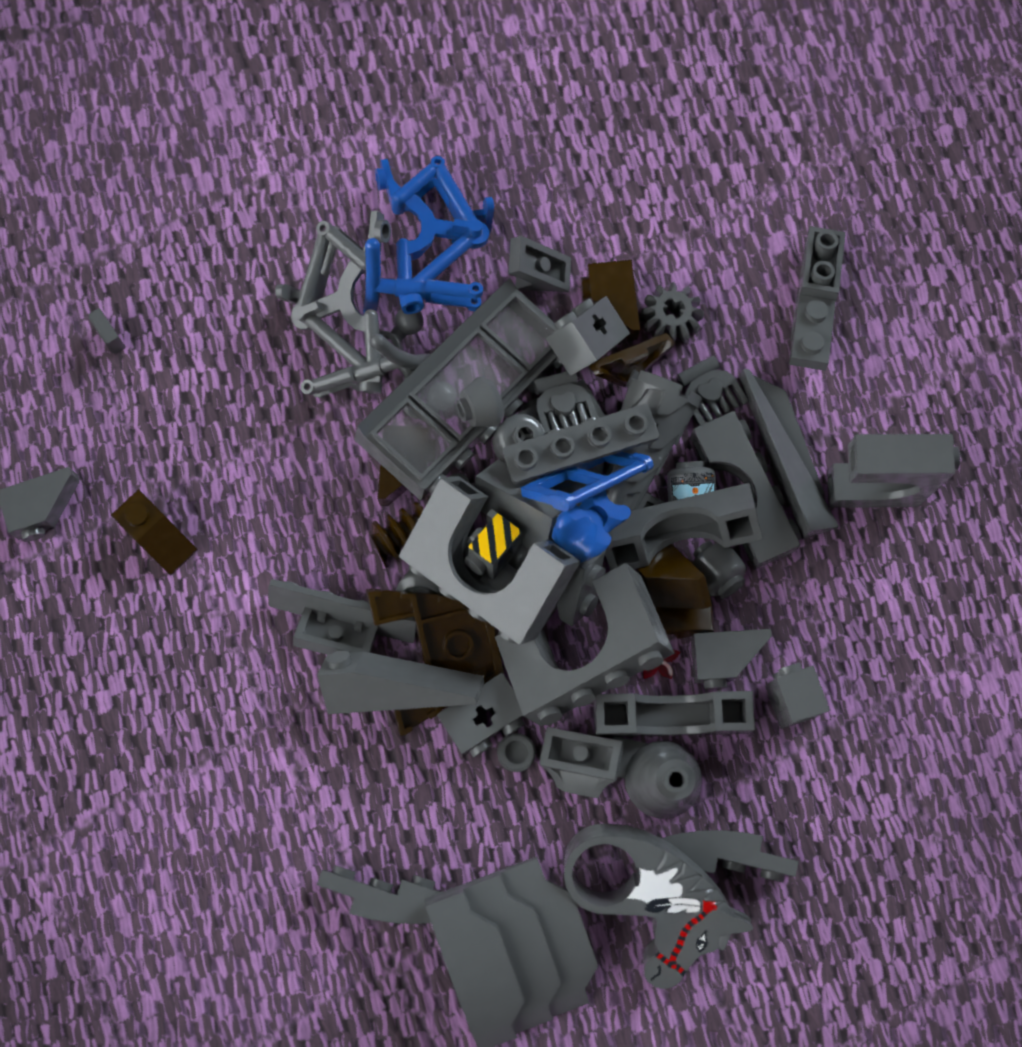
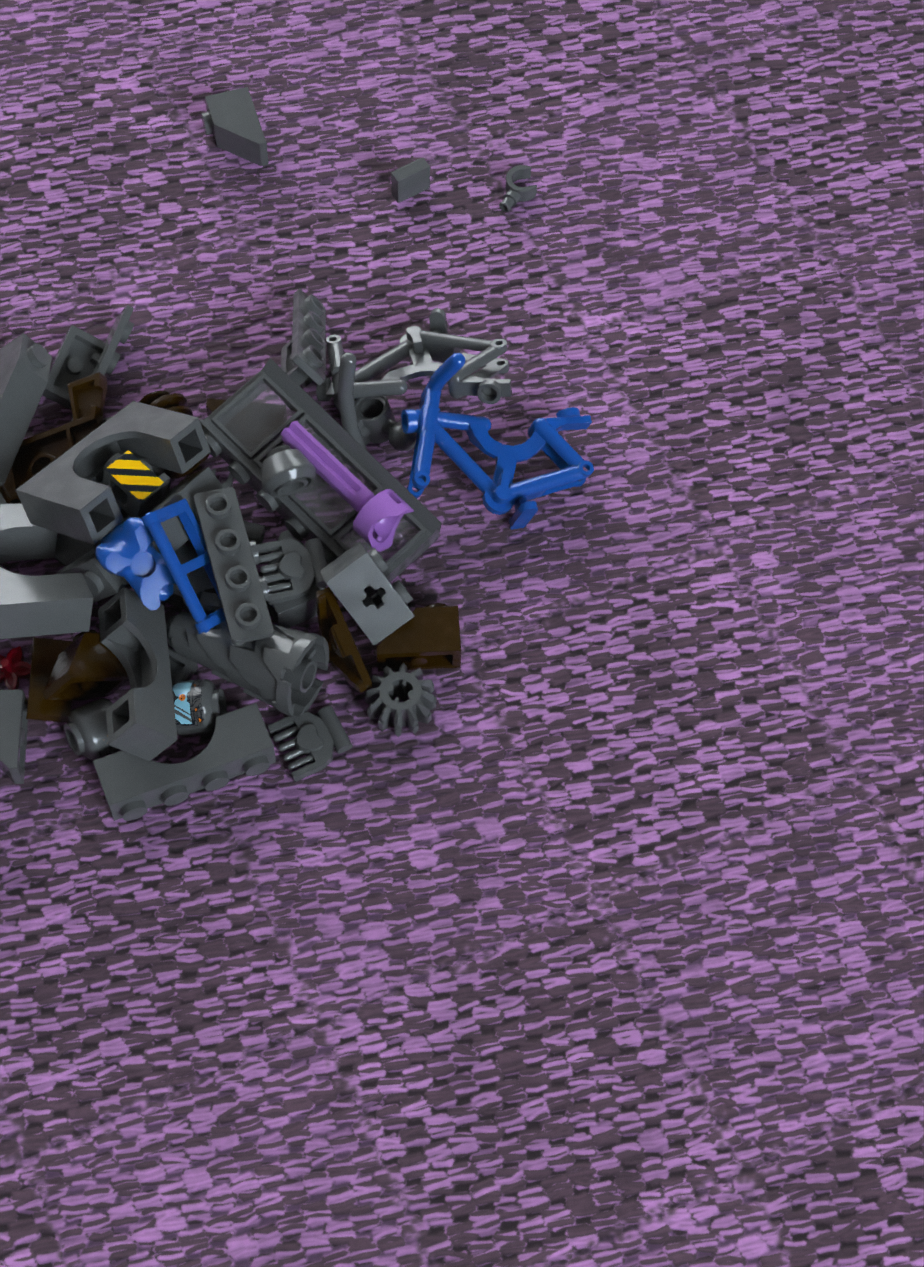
camera: 90 degrees right, 15 degrees down
(117, 238) = (514, 192): none -> dark grey piece
(154, 532) = (199, 216): dark brown slope -> none
(321, 413) = (305, 354): none -> dark grey bracket
(515, 430) = (268, 522): dark grey head -> none
(517, 323) = (377, 513): none -> medium lavender piece
(538, 266) = (462, 564): dark grey slope -> none
(788, 455) = (220, 811): dark grey wedge -> none
(817, 298) = (410, 858): dark grey slope -> none
(892, 470) = (168, 881): dark grey arch -> none

